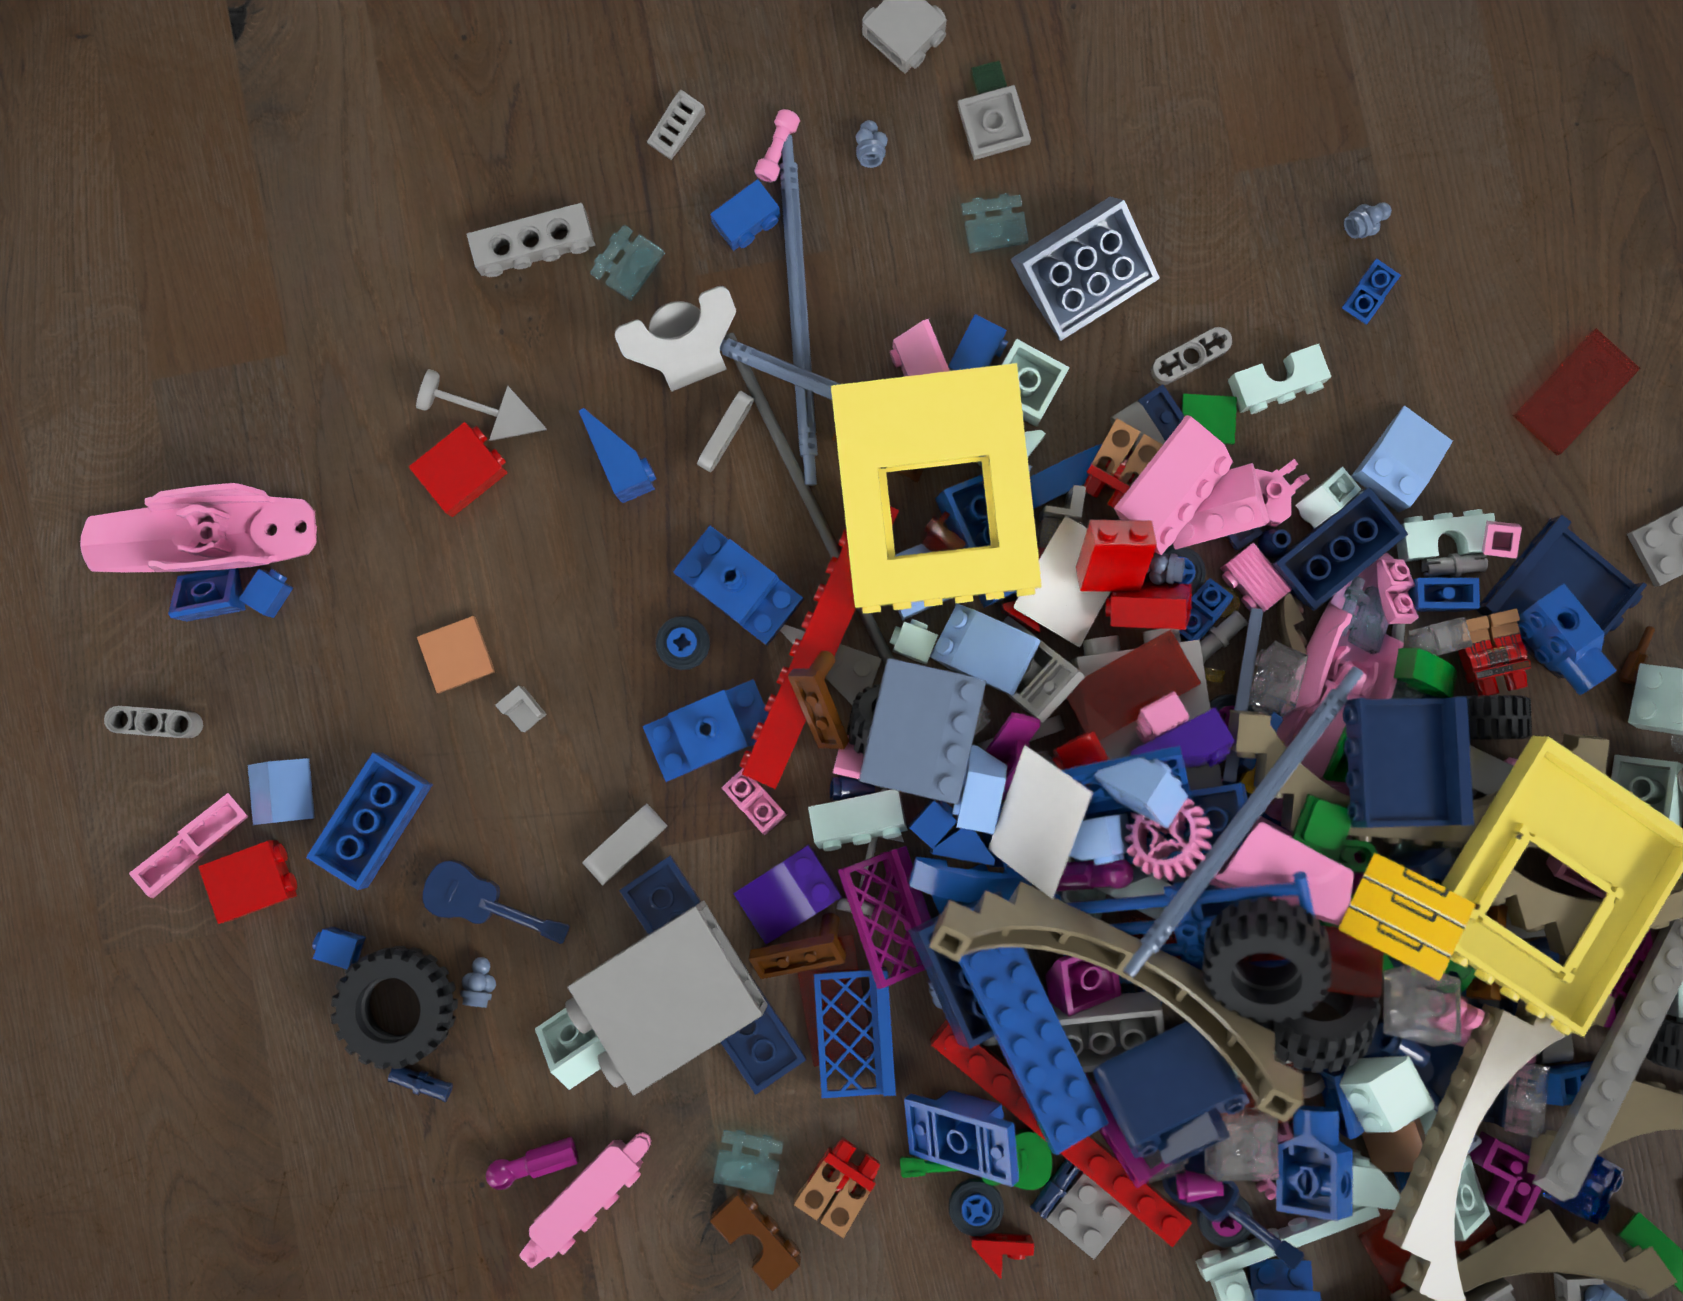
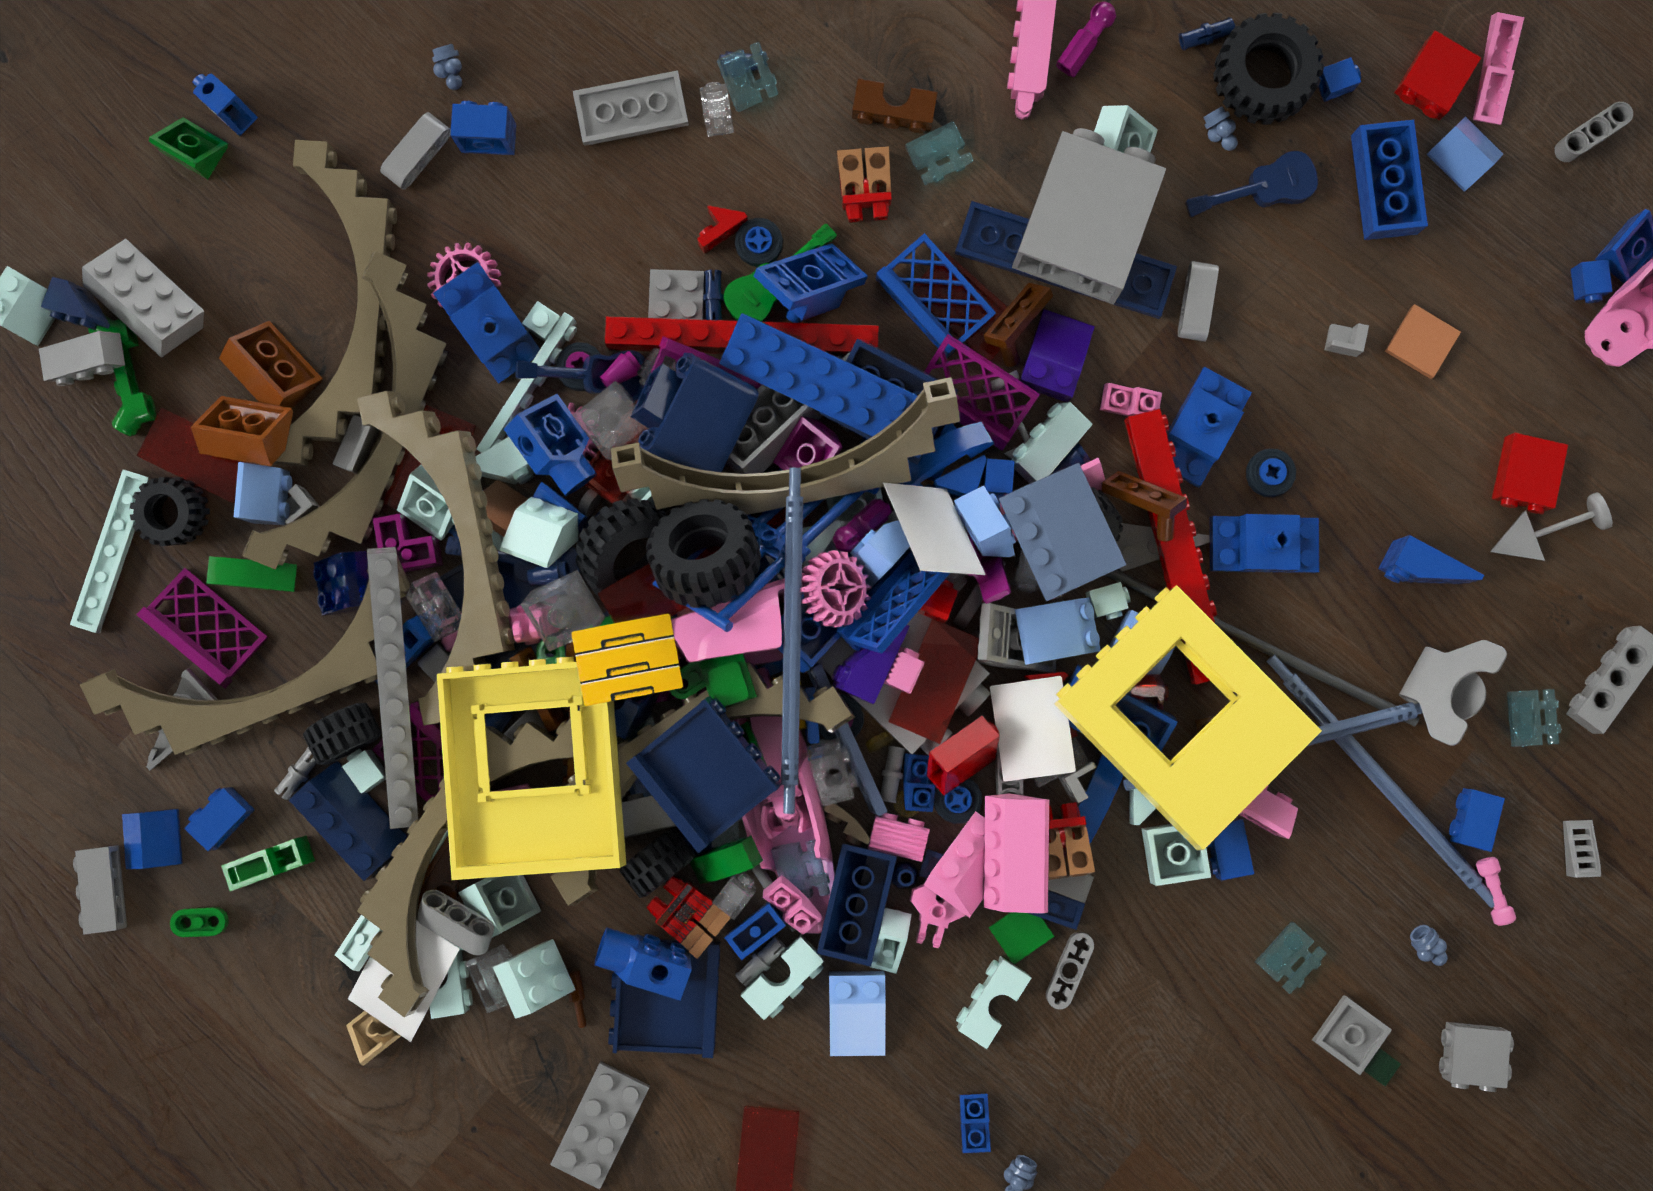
camera: 140 degrees right, 0 degrees up
(725, 431) = (1362, 648): light grey beam -> none
(1086, 267) = (1198, 976): sand blue slope -> none
(1115, 555) = (1021, 766): red brick -> none
(1145, 788) = (880, 607): light blue slope -> none
(1166, 569) = (973, 790): sand blue piece -> none
(1501, 539) = (748, 999): bright pink brick -> none

